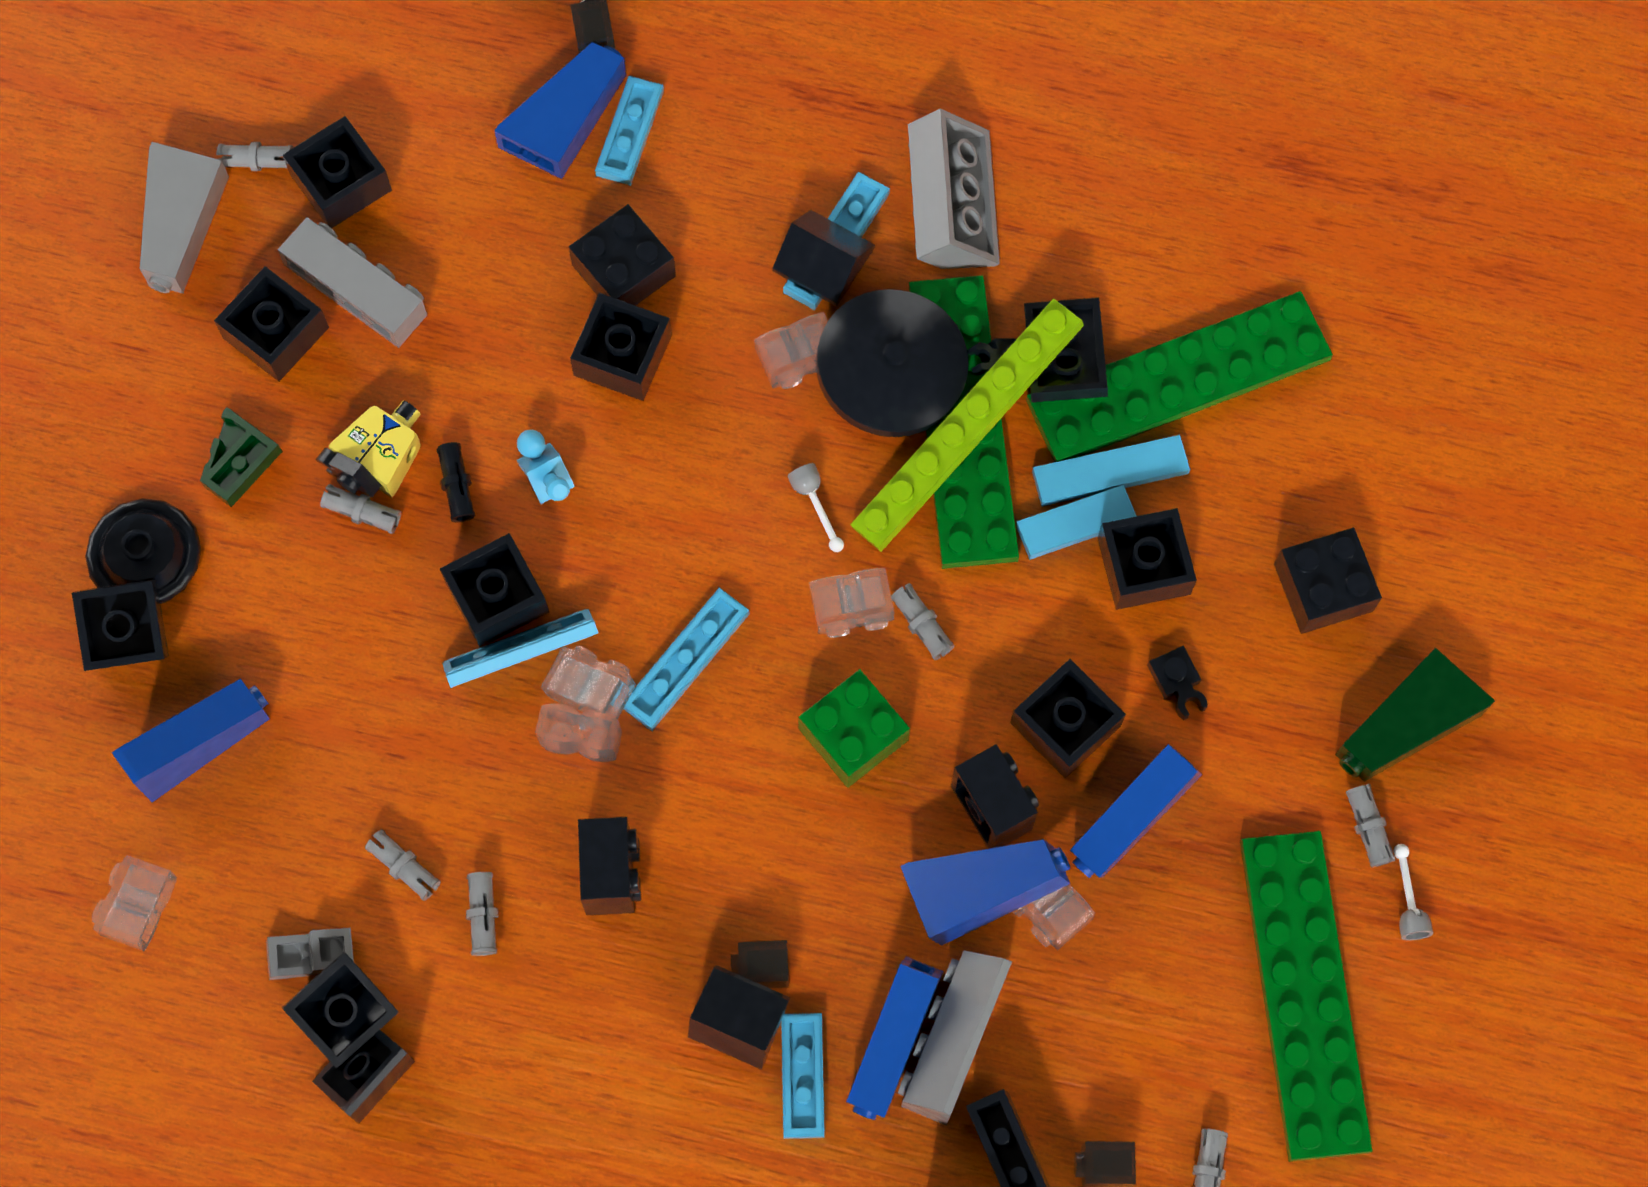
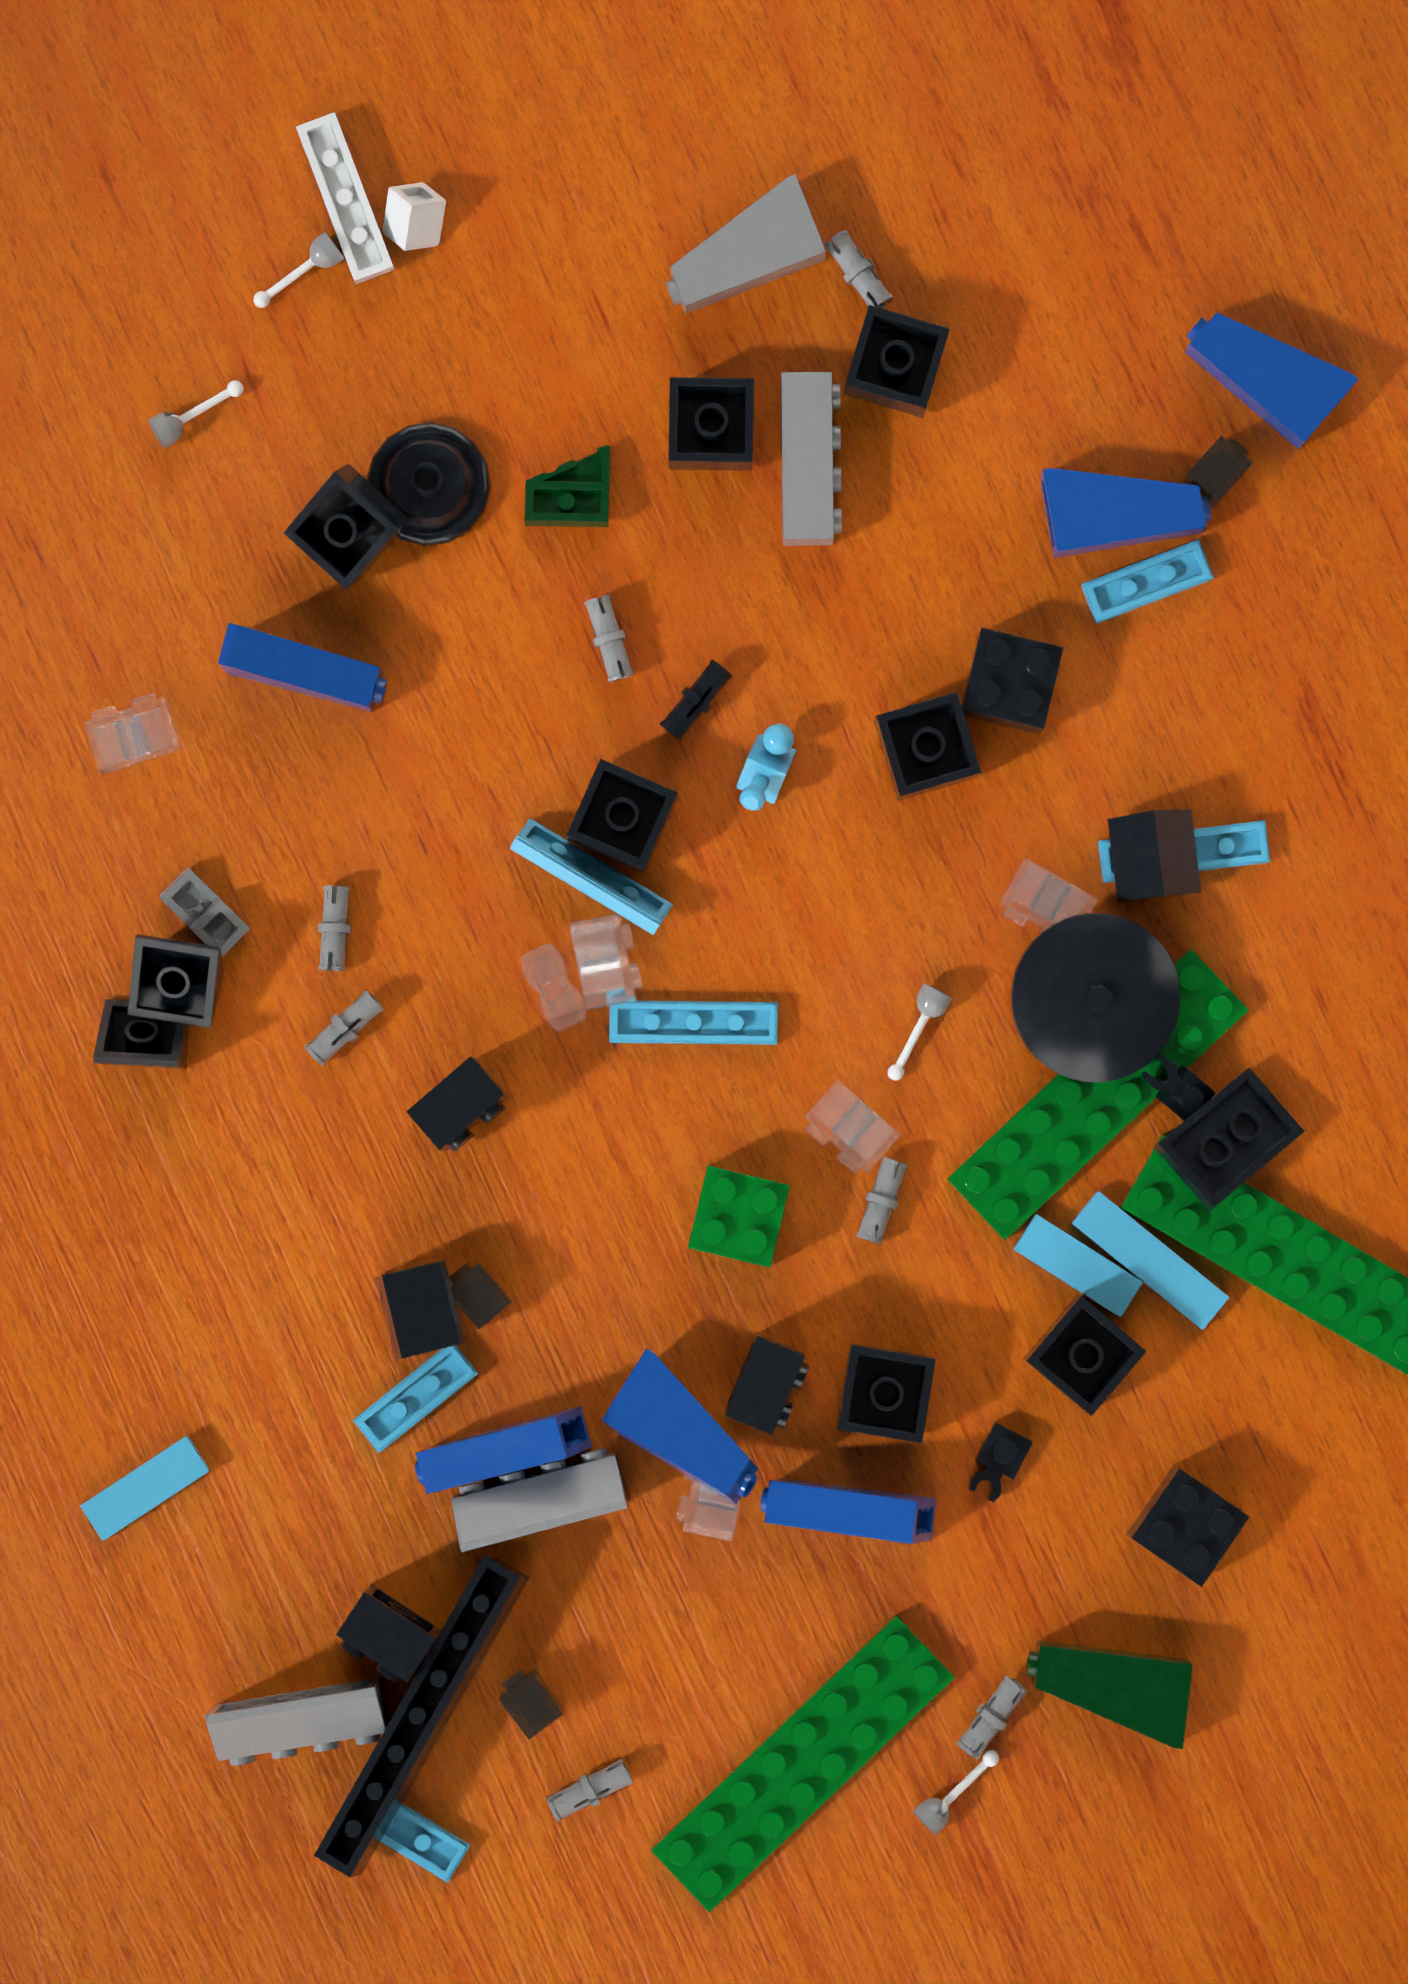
camera: 55 degrees right, 15 degrees up
(349, 473) = (629, 609): black plate -> none
(382, 444) = (677, 609): light yellow torso -> none
(952, 192) = (1309, 922): light grey slope -> none
(967, 425) = (1088, 1108): lime plate -> none

